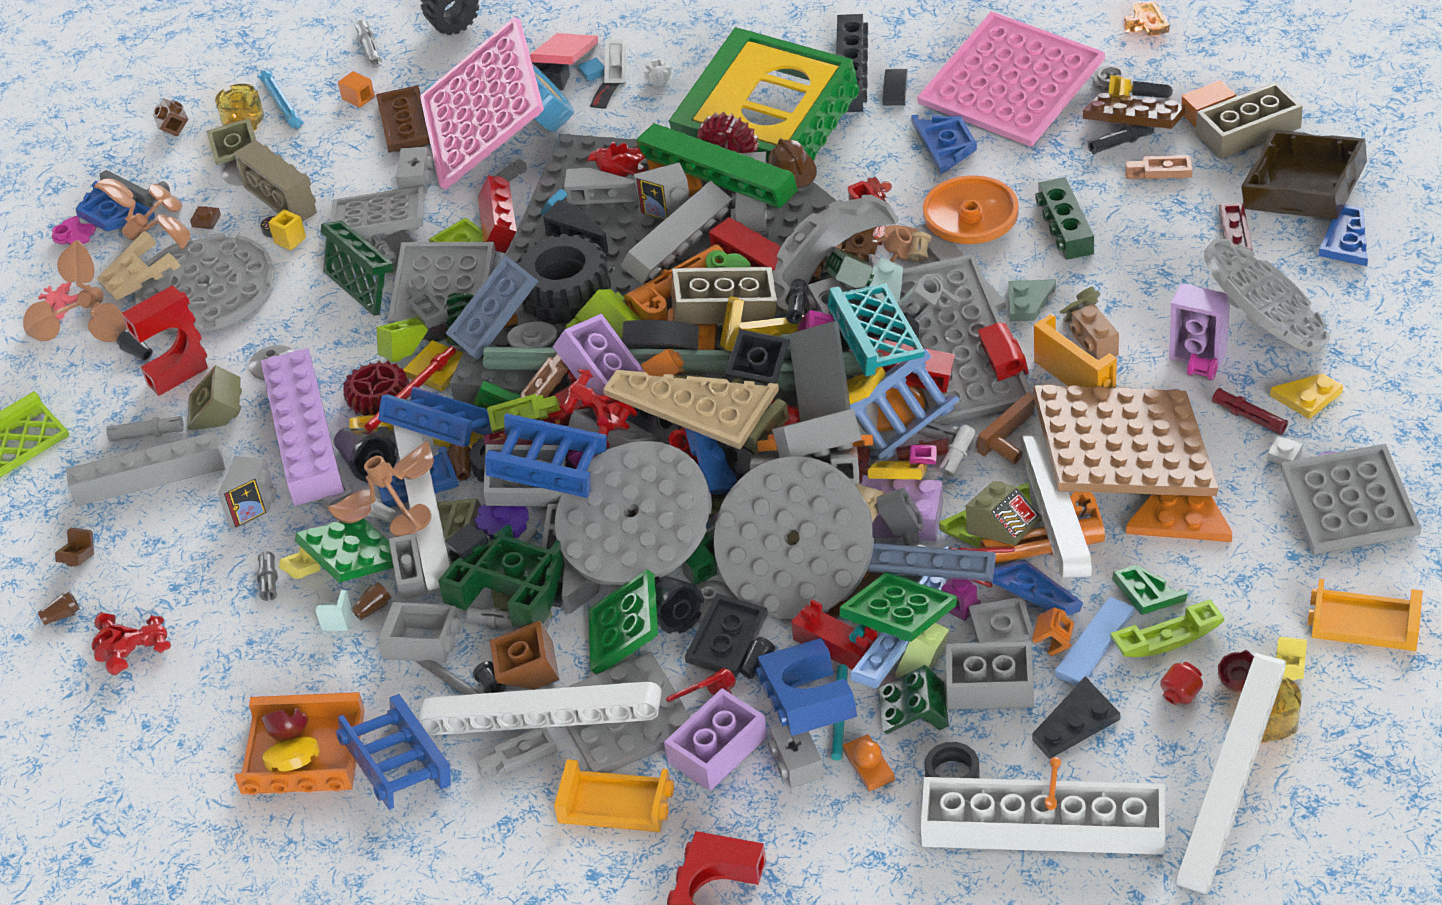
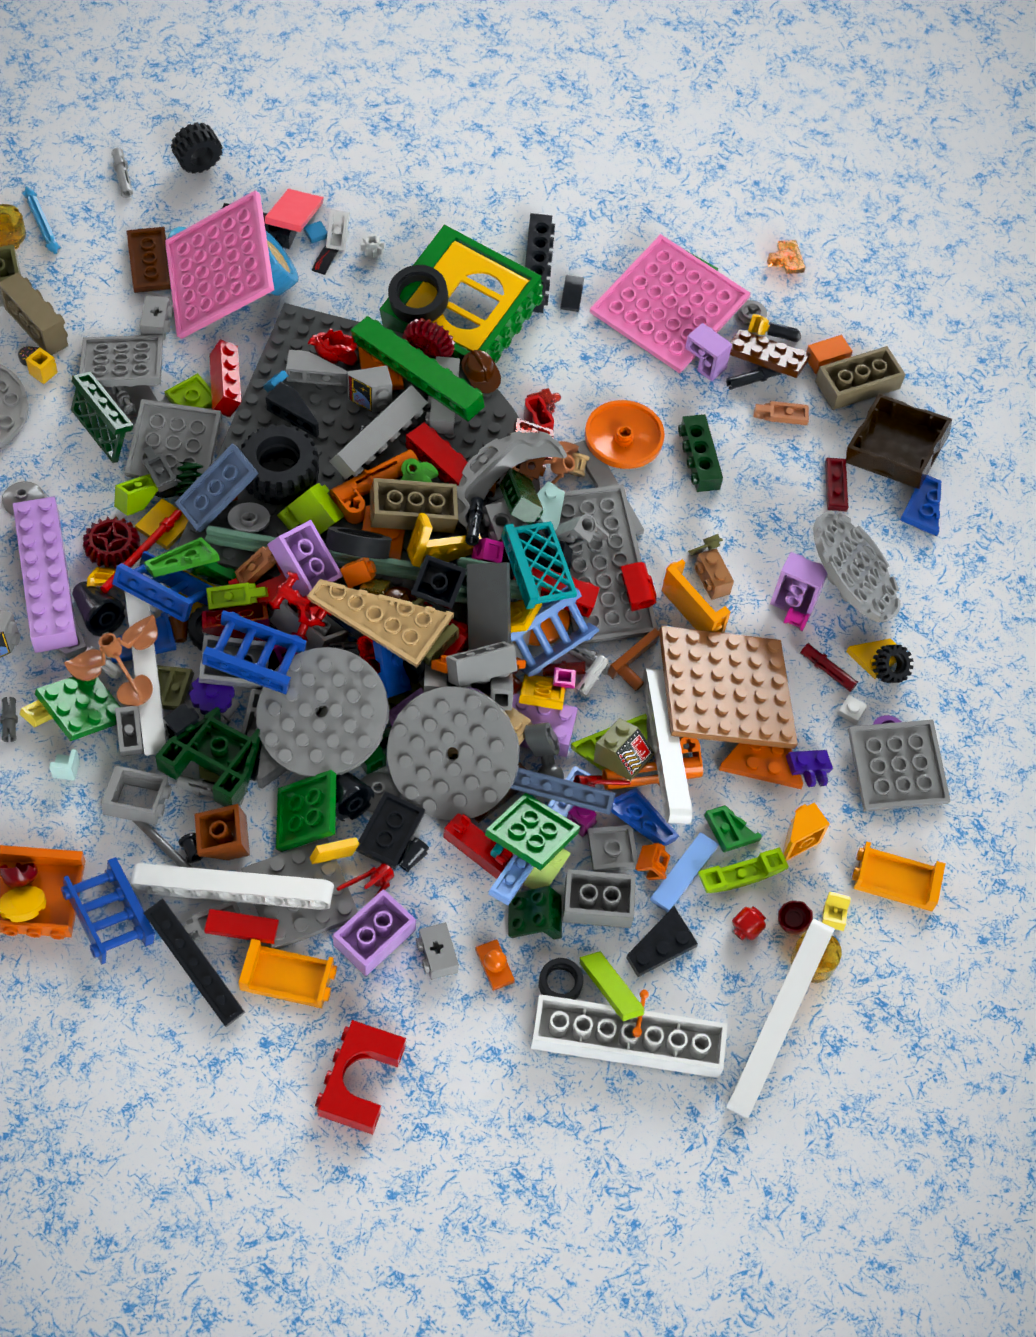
camera: 10 degrees left, 15 degrees up
(356, 89) = (109, 221): orange brick -> none
(371, 601) = (96, 757): reddish brown cone -> none
(457, 383) = (181, 558): none -> bright green wing
(500, 793) = (194, 962): none -> black plate
(511, 172) = (237, 332): dark grey axle -> none
(553, 749) = (241, 926): none -> red tile
(659, 658) = (334, 850): none -> yellow tile
(707, 77) = (413, 274): none -> black tyre
(810, 707) = (446, 917): blue arch -> none
(838, 728) = (475, 914): teal bar -> none
(945, 139) = (609, 355): blue wing -> none
(1015, 761) = (611, 986): none -> lime tile
(1028, 297) = (662, 527): sand green wing -> none
(1065, 113) = (710, 349): none -> lavender brick
(1239, 512) = (811, 765): none -> dark purple hinge
(1240, 576) = (805, 830): none -> light orange slope
(1318, 403) = (882, 663): none -> black tyre

